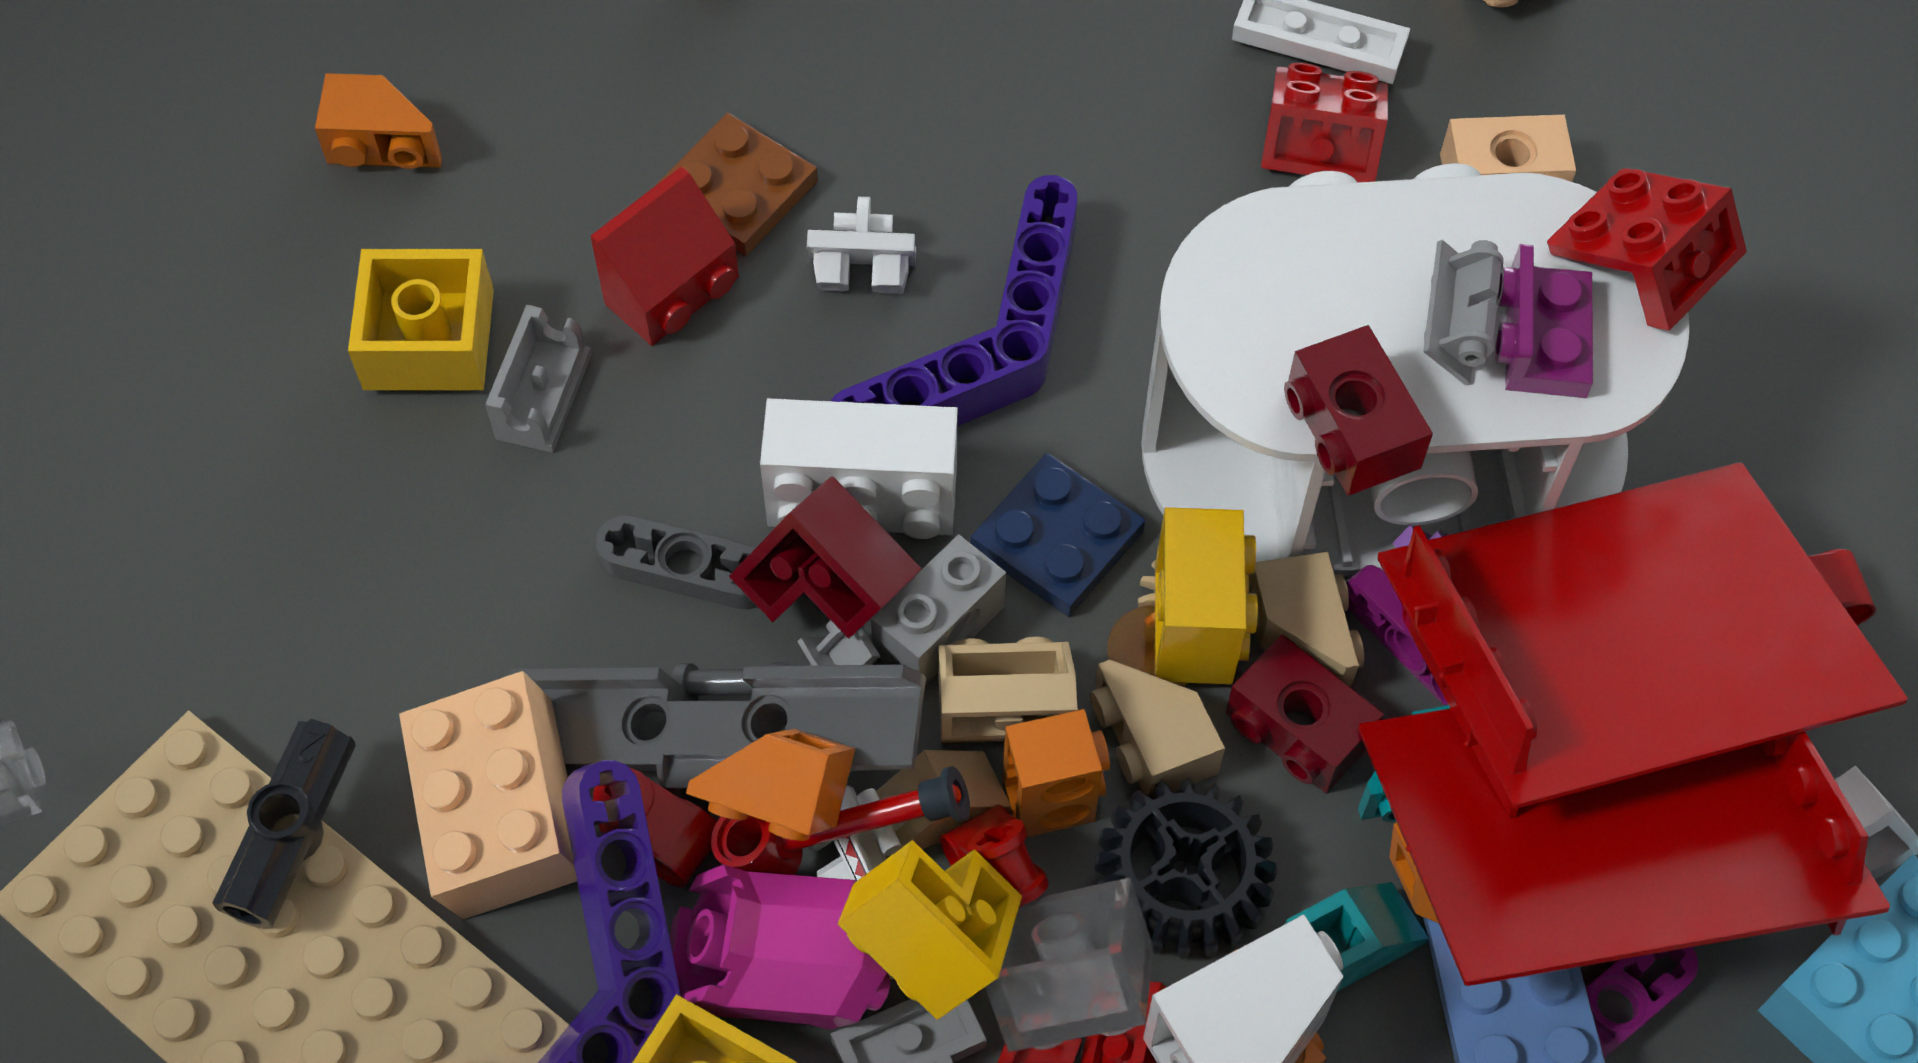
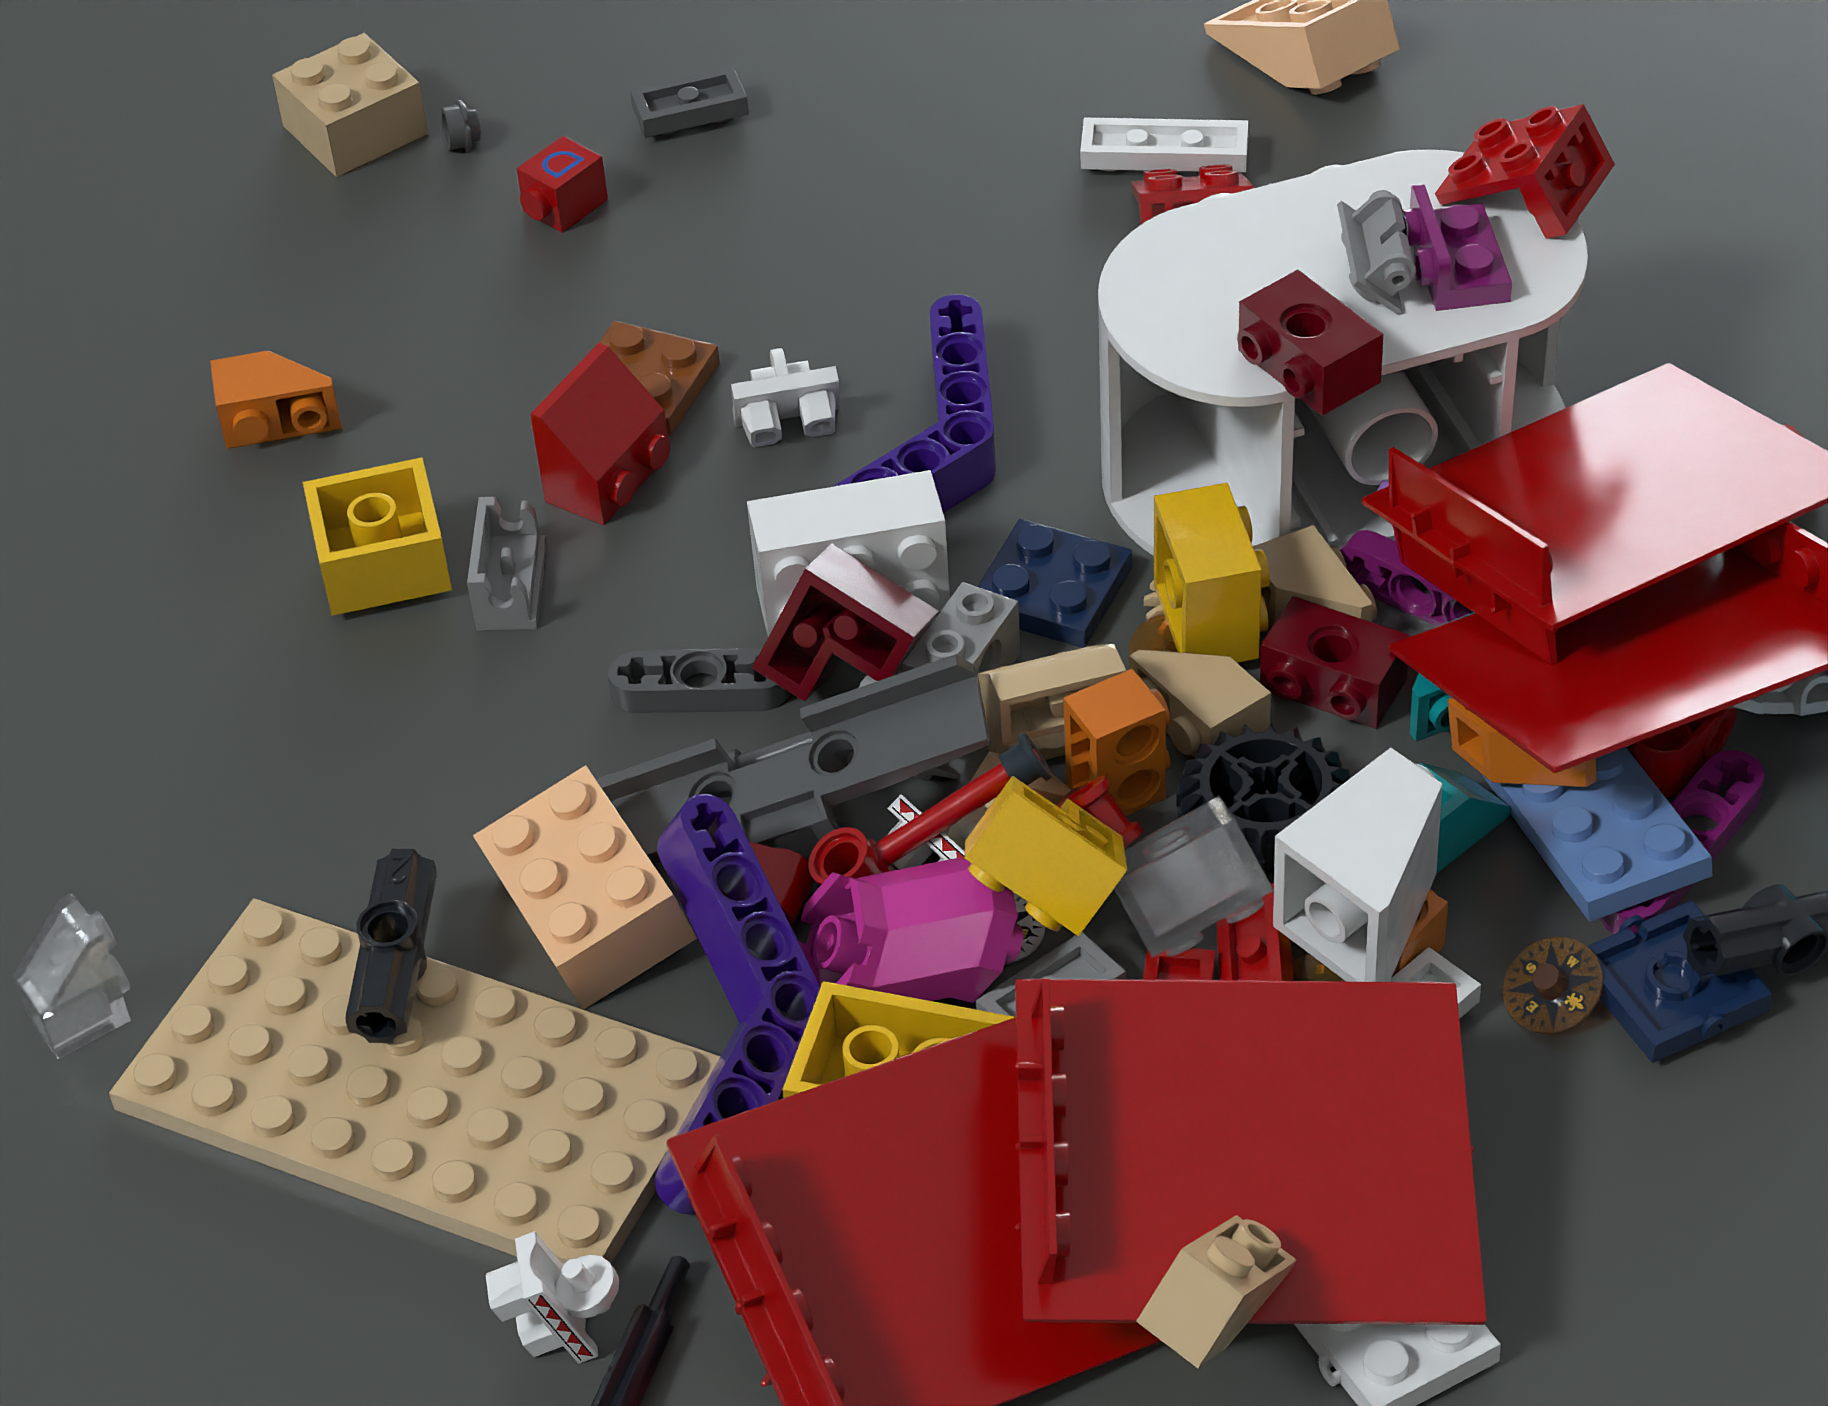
camera: 10 degrees left, 15 degrees down
(781, 779) = (864, 780): orange slope -> none

